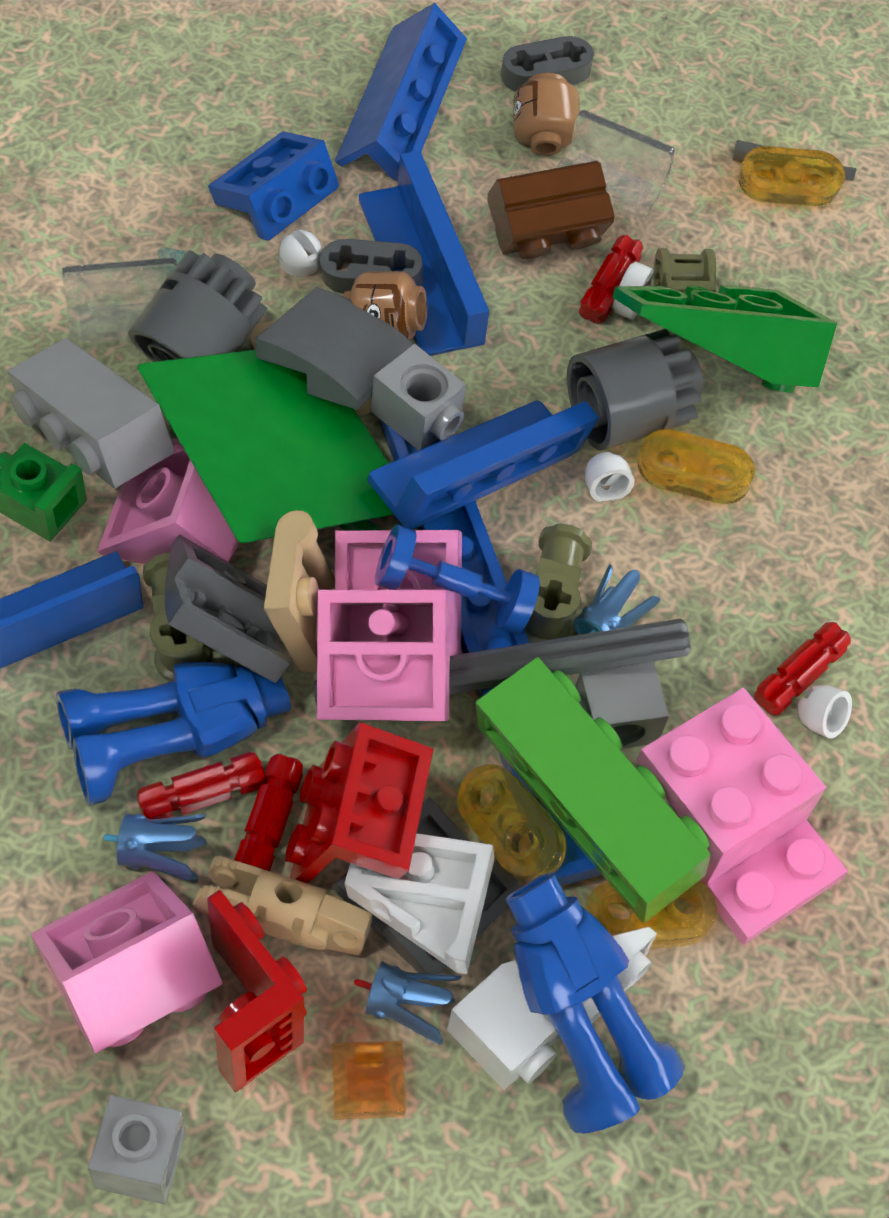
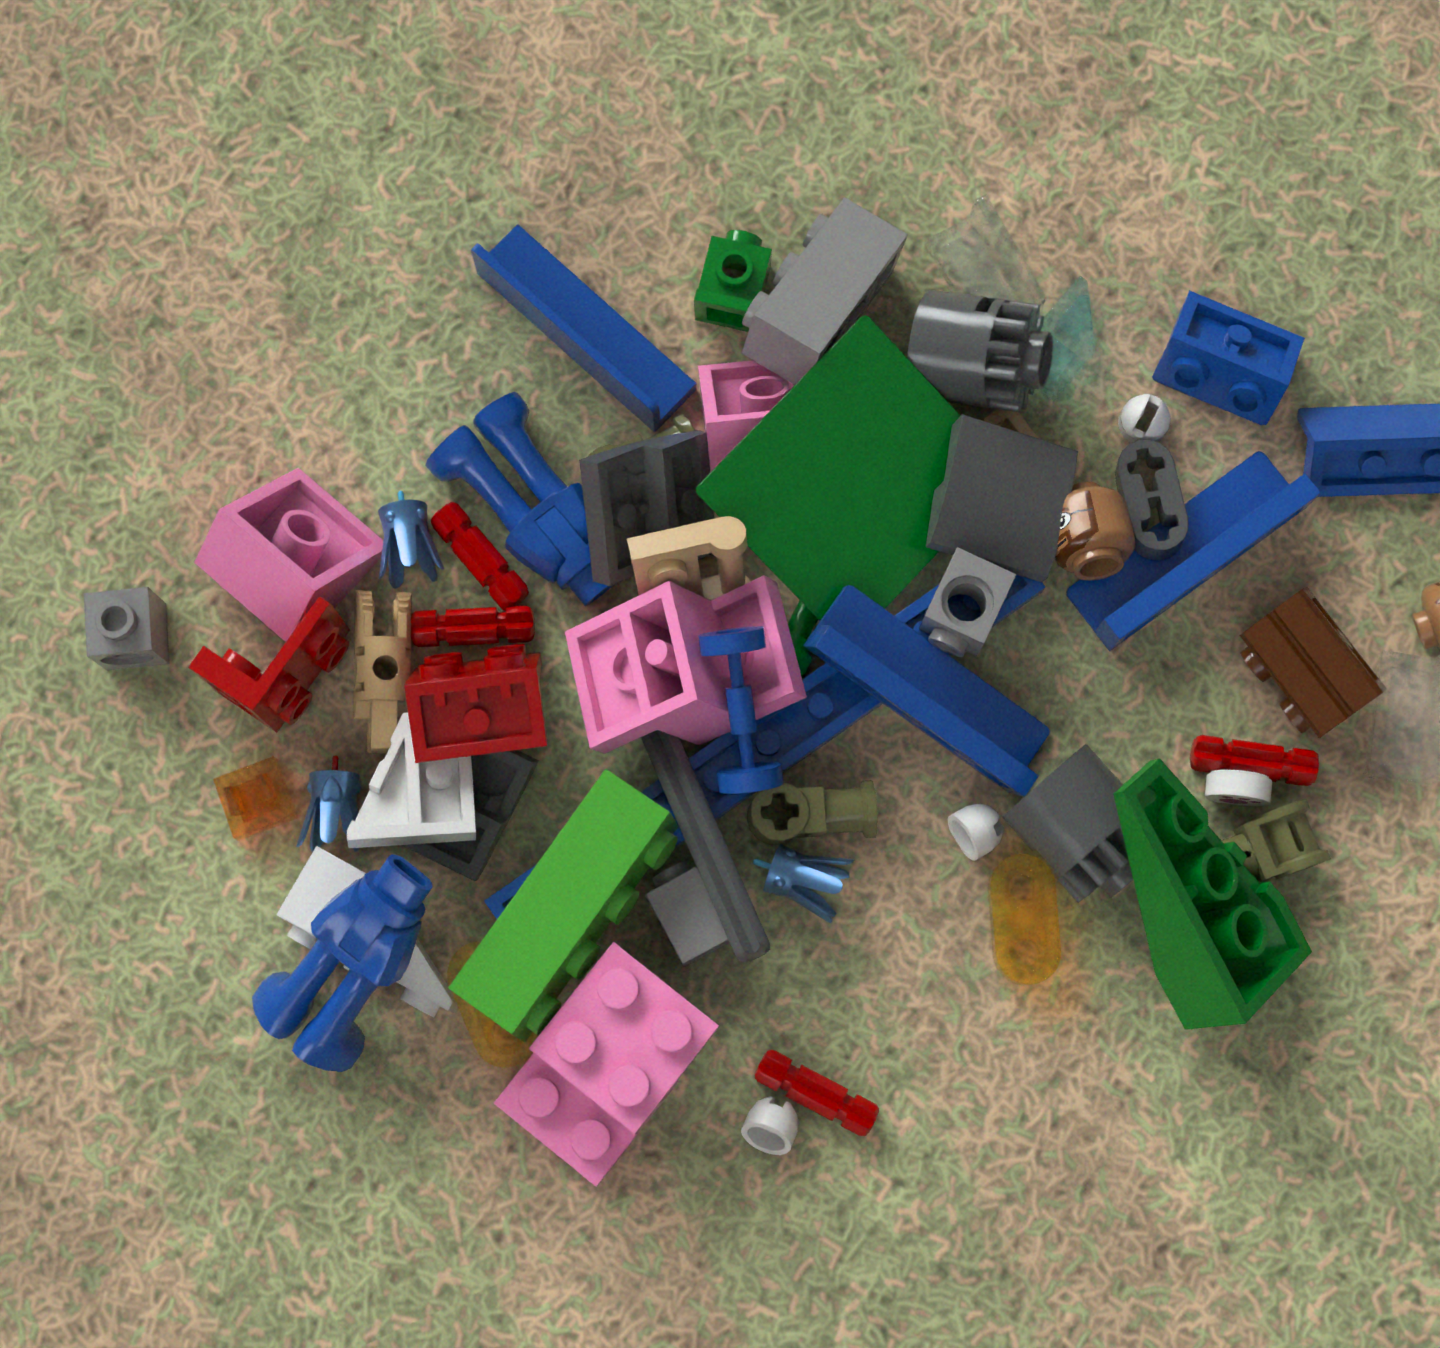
camera: 80 degrees right, 20 degrees up
(508, 818) = (523, 841): clear yellow plate -> none

